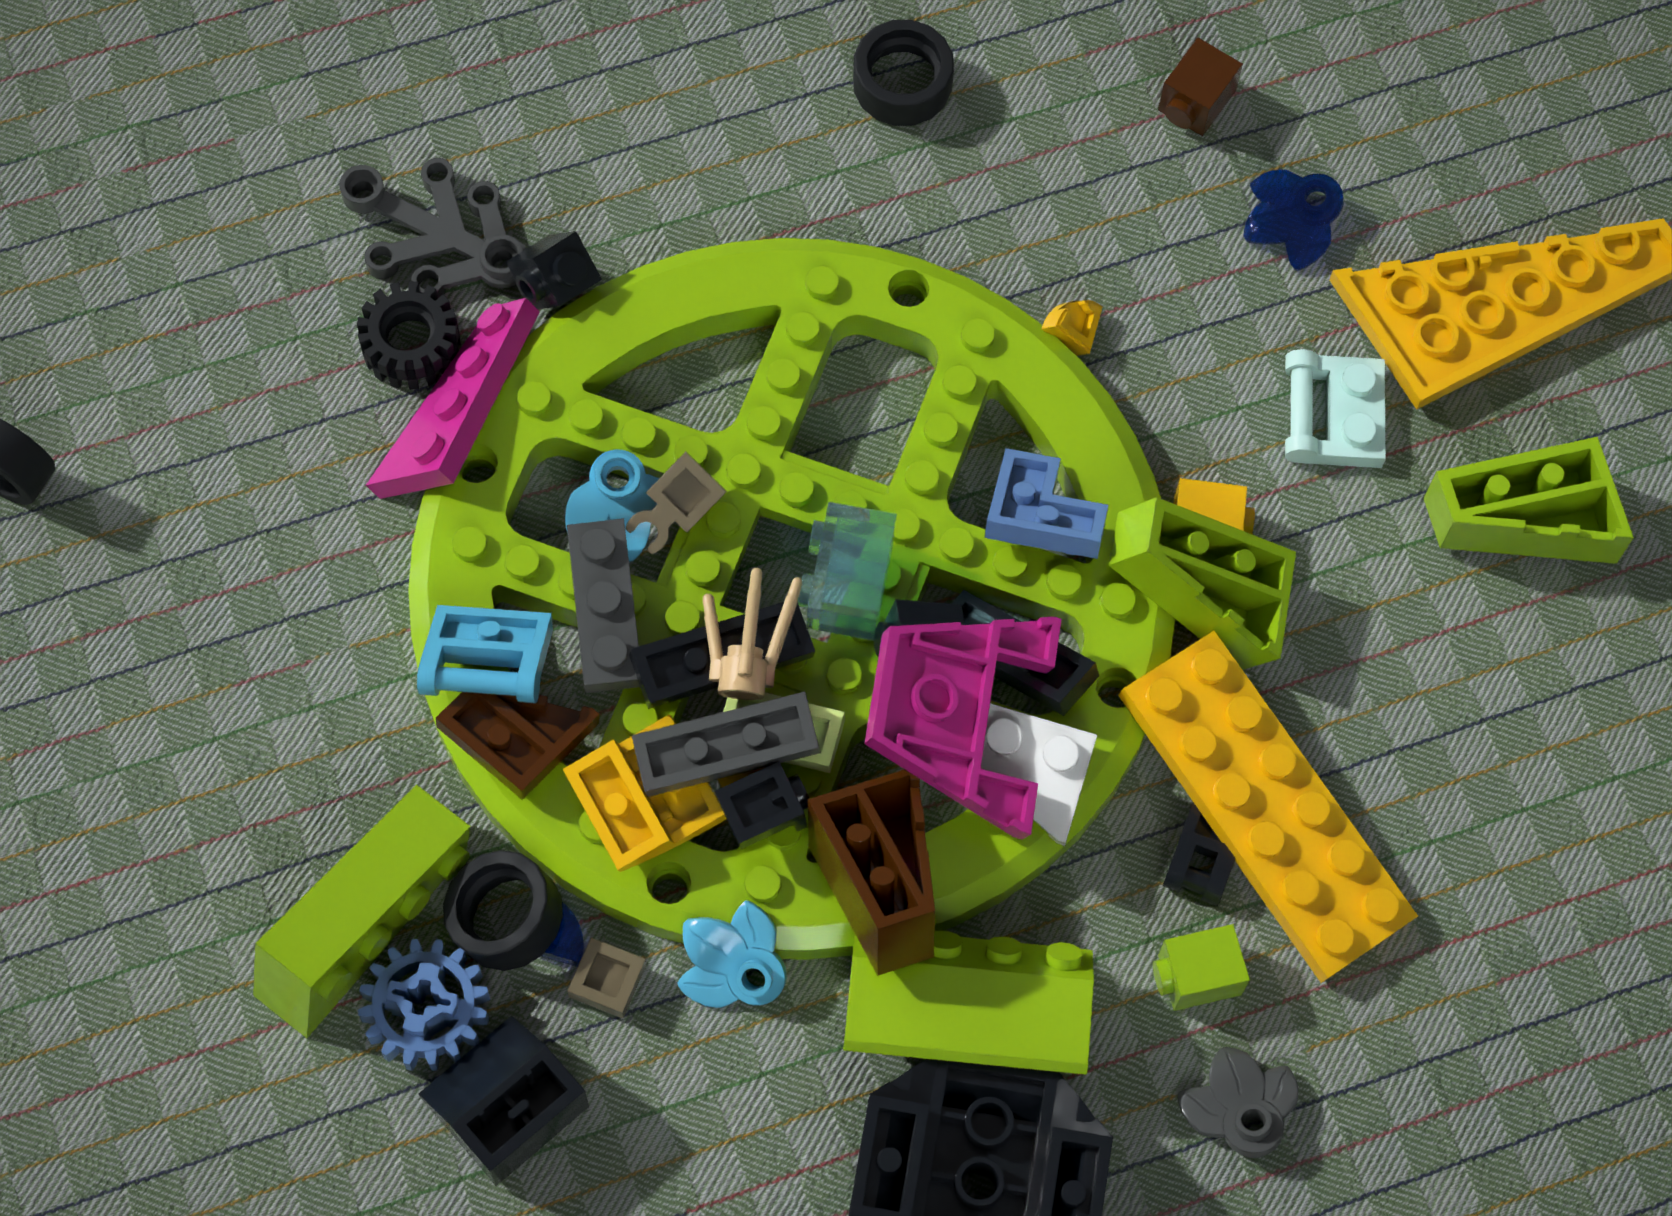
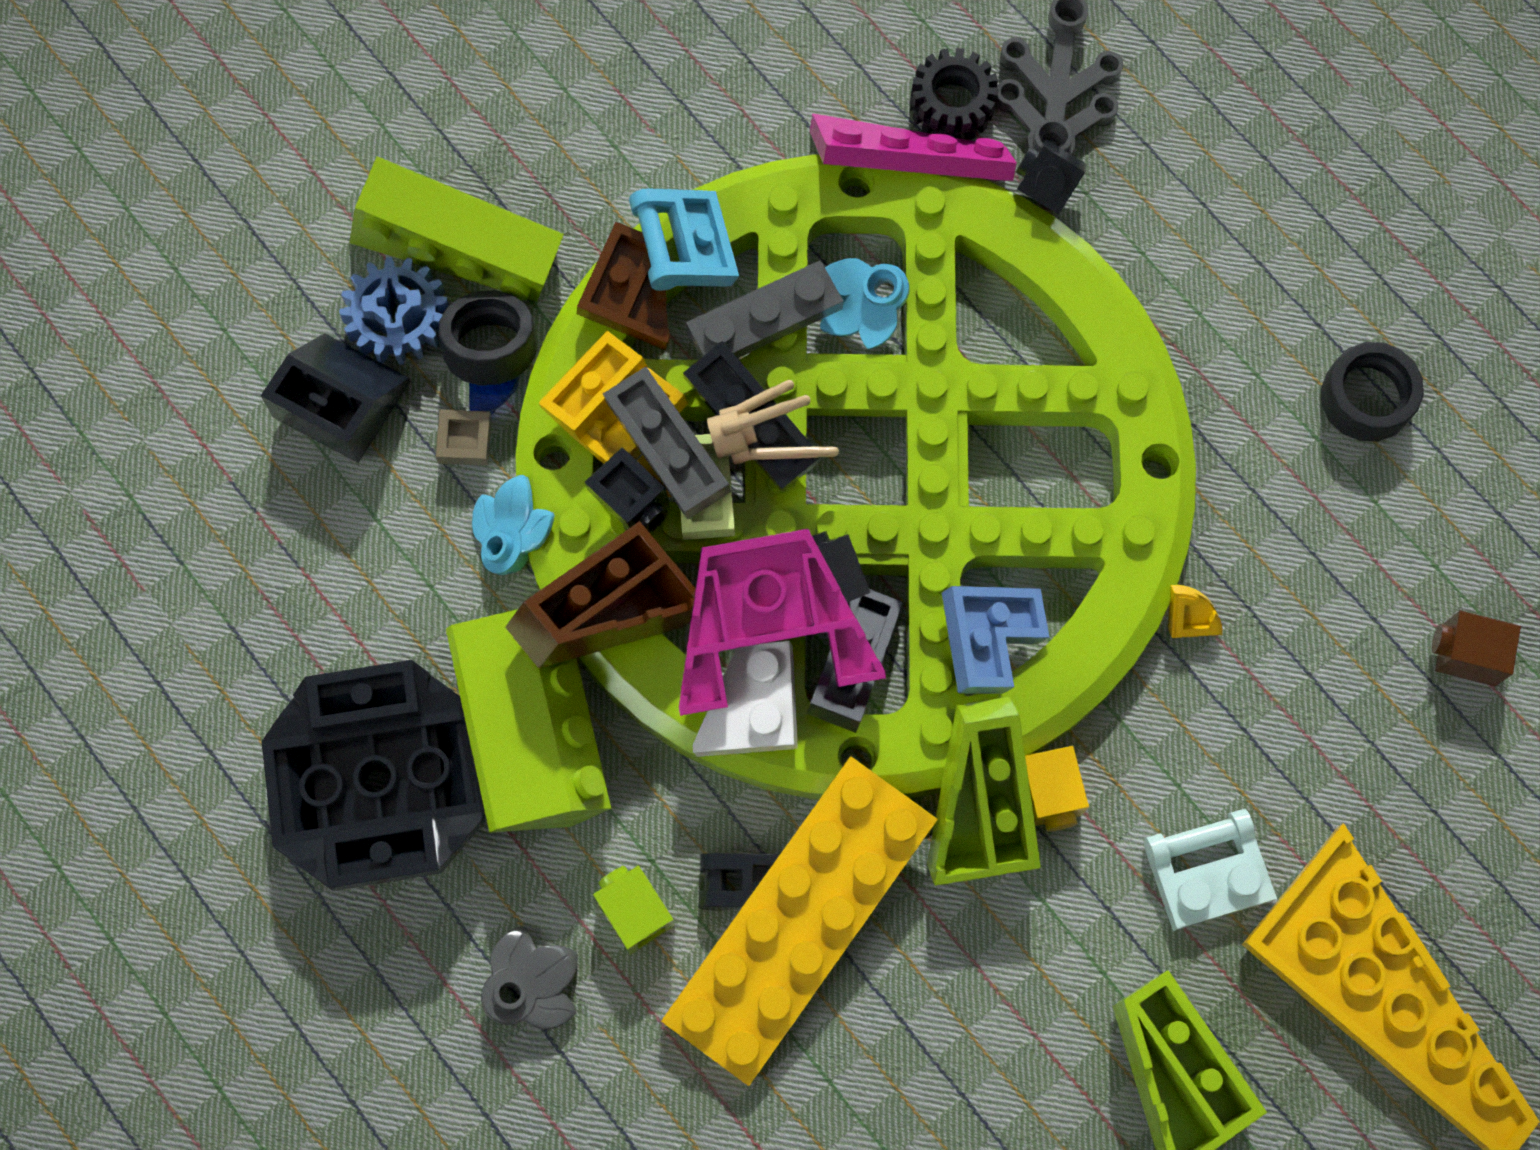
camera: 70 degrees right, 5 degrees up
(681, 496) = (880, 340): dark tan plate -> none
(849, 570) = (866, 491): clear light blue brick -> none
(1289, 219) = (1382, 770): clear blue plate -> none

